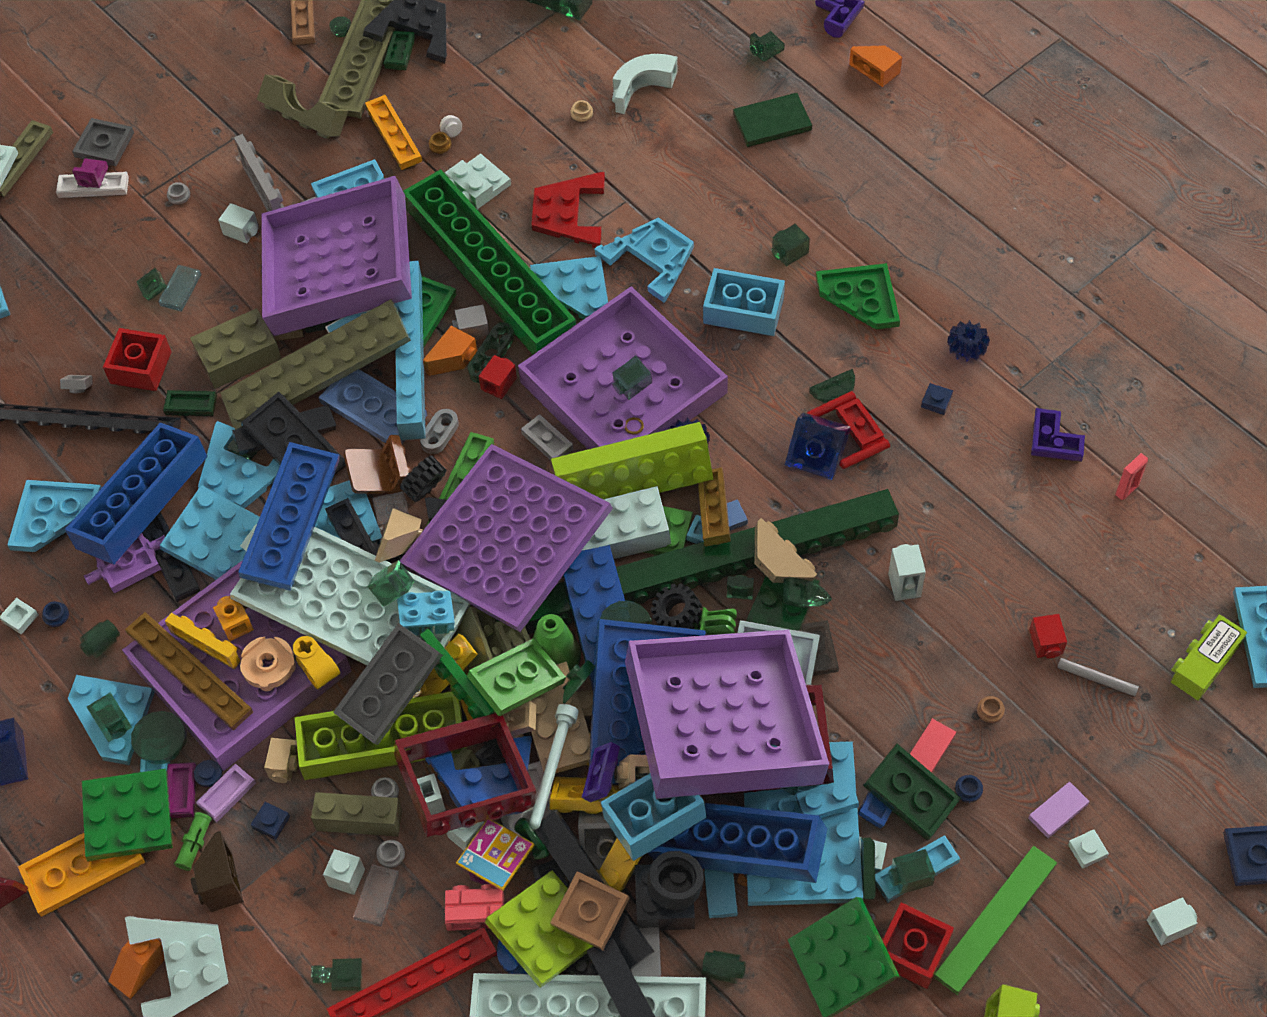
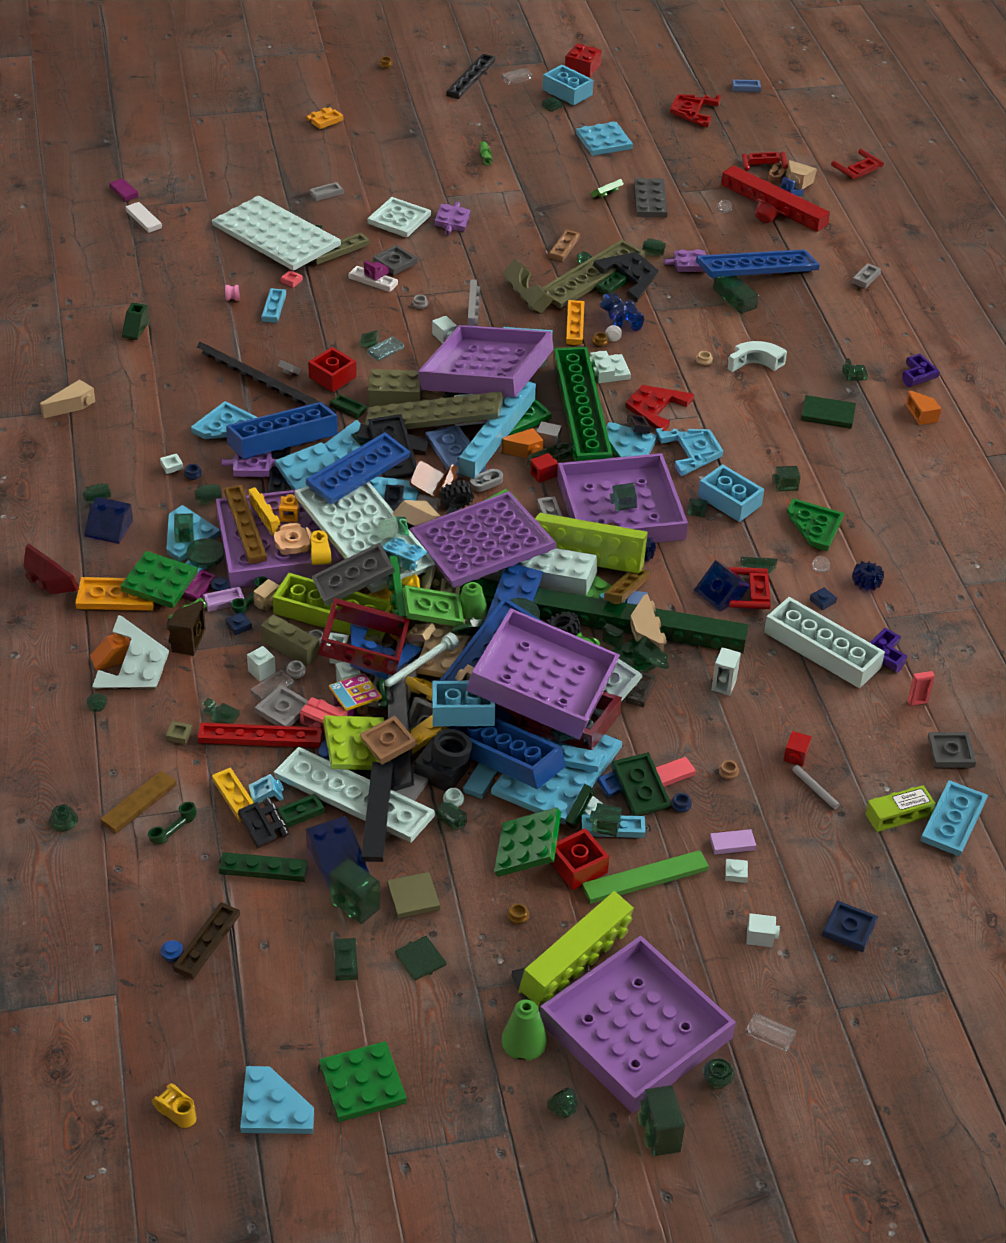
camera: 25 degrees right, 15 degrees down
(64, 71) = (399, 217): none -> light aqua plate
(134, 40) = (452, 217): none -> medium lavender plate
(255, 794) = (239, 604): none -> dark green bar
(413, 922) = (281, 707): none -> light grey plate
(441, 89) = (619, 312): none -> clear blue animal
(570, 252) = (638, 424): none -> black tile
(600, 772) = (449, 672): dark purple plate -> none
(706, 937) = (454, 796): none -> light aqua plate
(712, 340) = (697, 507): none -> clear green plate
(905, 351) = (821, 564): none -> clear plate
(984, 466) = (824, 642): none -> light aqua brick
(1209, 541) = (951, 750): none -> dark grey plate

